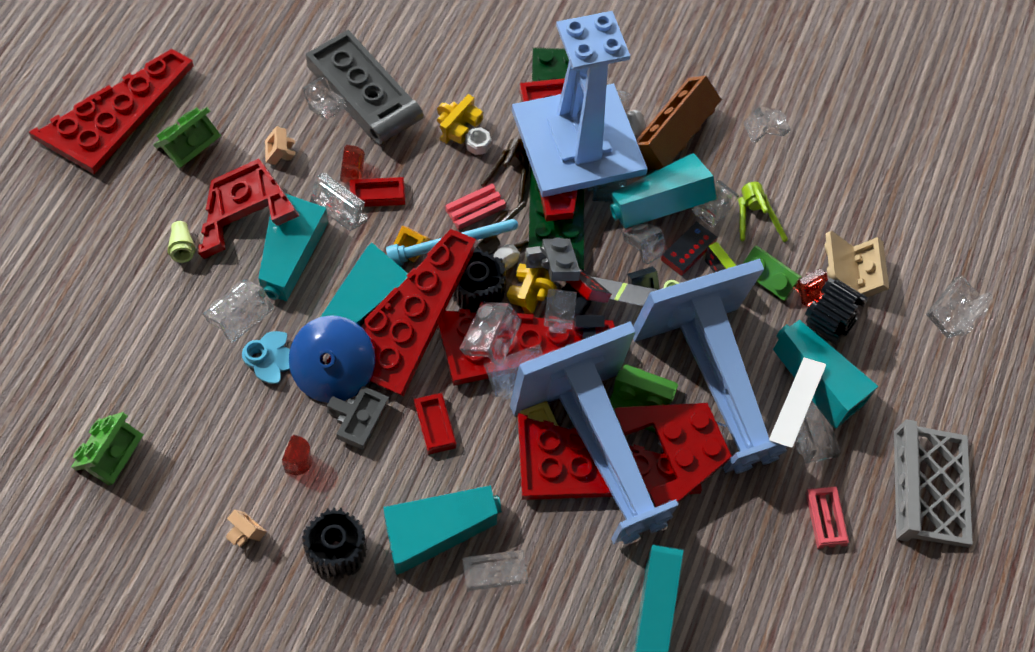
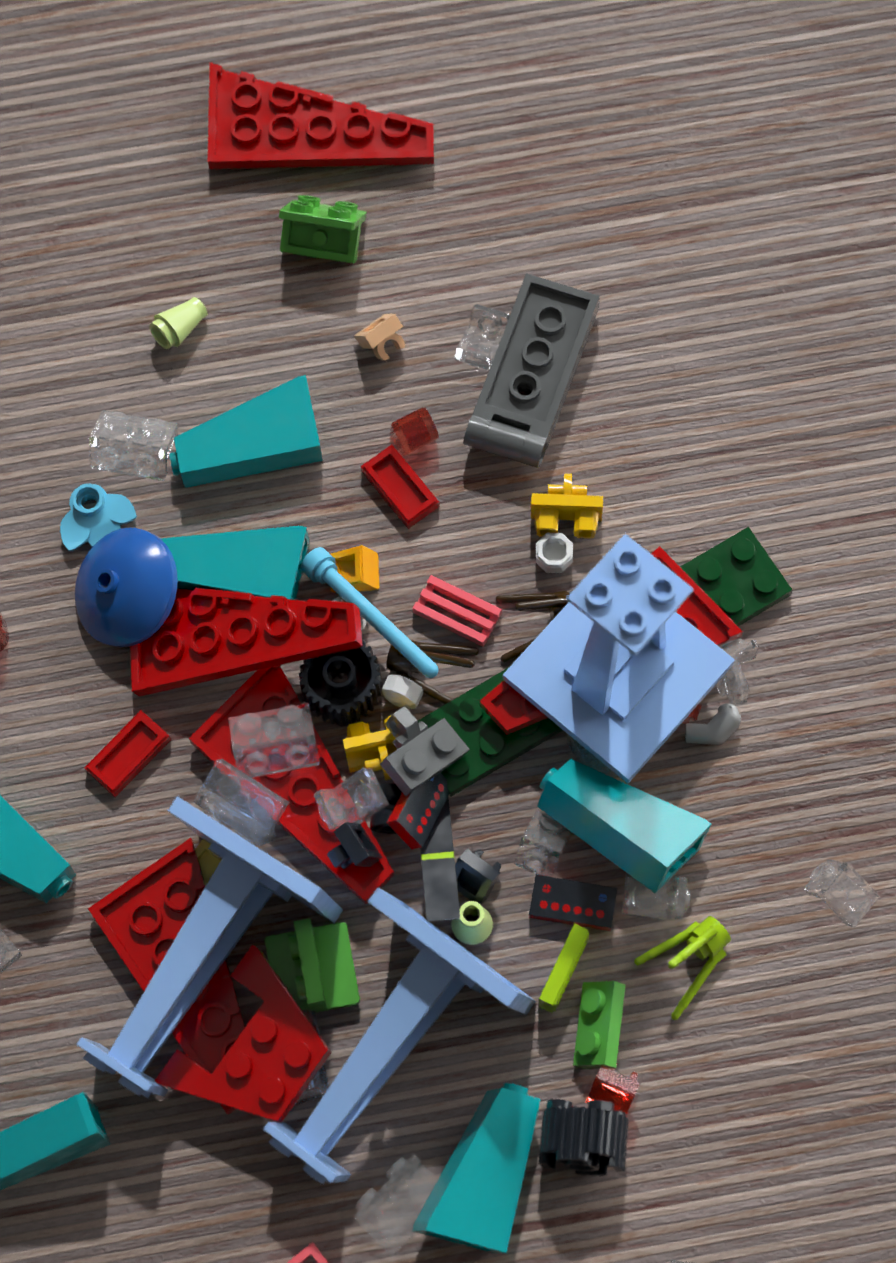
camera: 65 degrees right, 10 degrees up
(238, 195) = (276, 339): red wing -> none
(340, 202) = (341, 455): clear bracket -> none
(358, 416) = (78, 664): dark grey hinge -> none
(678, 122) = (748, 775): dark orange brick -> none
(797, 402) = (394, 1159): white sticker -> none
(857, 266) = (678, 1125): tan bracket -> none

